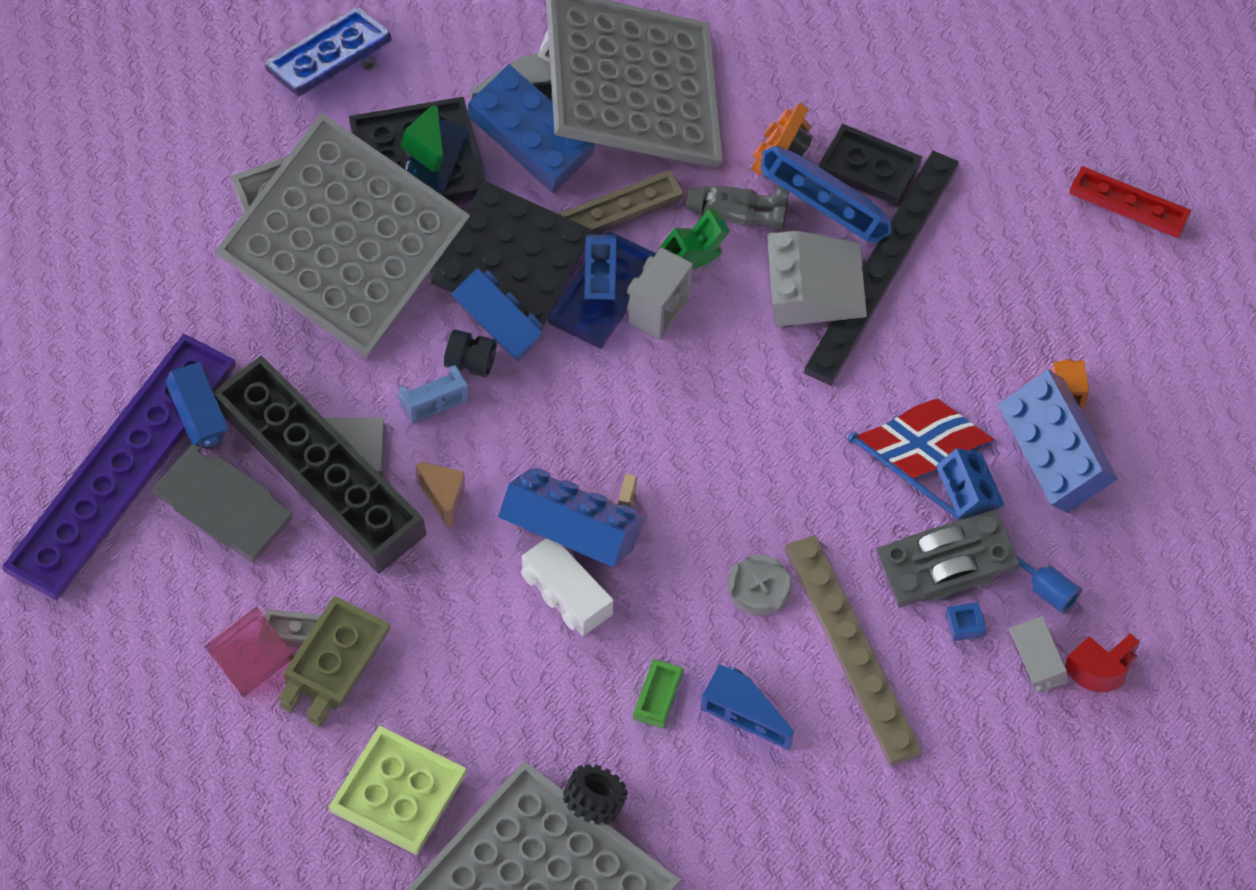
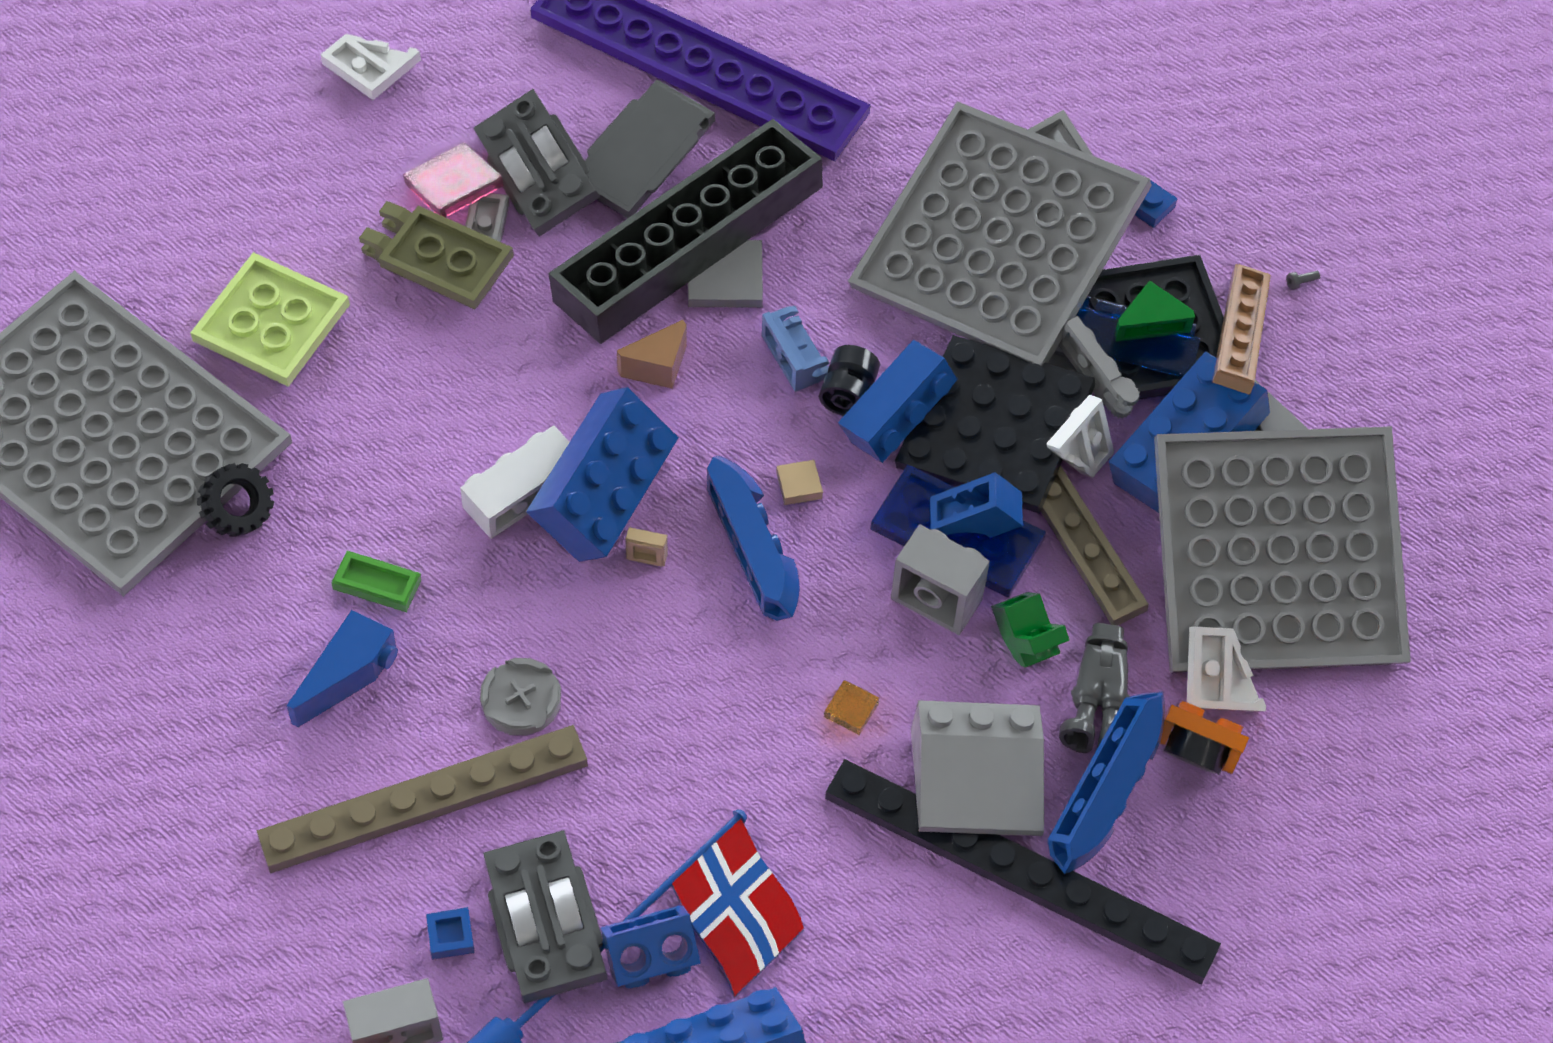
camera: 90 degrees right, 0 degrees up
(108, 729) = (368, 64): none -> white wing
(197, 406) = (774, 99): blue brick -> none
(232, 583) = (536, 162): none -> dark grey piece
(283, 145) = (1156, 205): none -> blue plate
(328, 51) = (1299, 232): clear blue plate -> none
(437, 83) = (1242, 329): none -> medium nougat tile
(467, 181) = (1090, 359): none -> light grey hinge
(531, 191) = (1084, 438): none -> white wing
(559, 395) = (799, 482): none -> tan tile
(613, 425) = (760, 554): none -> blue brick
(728, 130) = (1219, 672): none -> white wing
(757, 365) = (851, 707): none -> clear yellow tile
(870, 164) = (1187, 858): black plate -> none

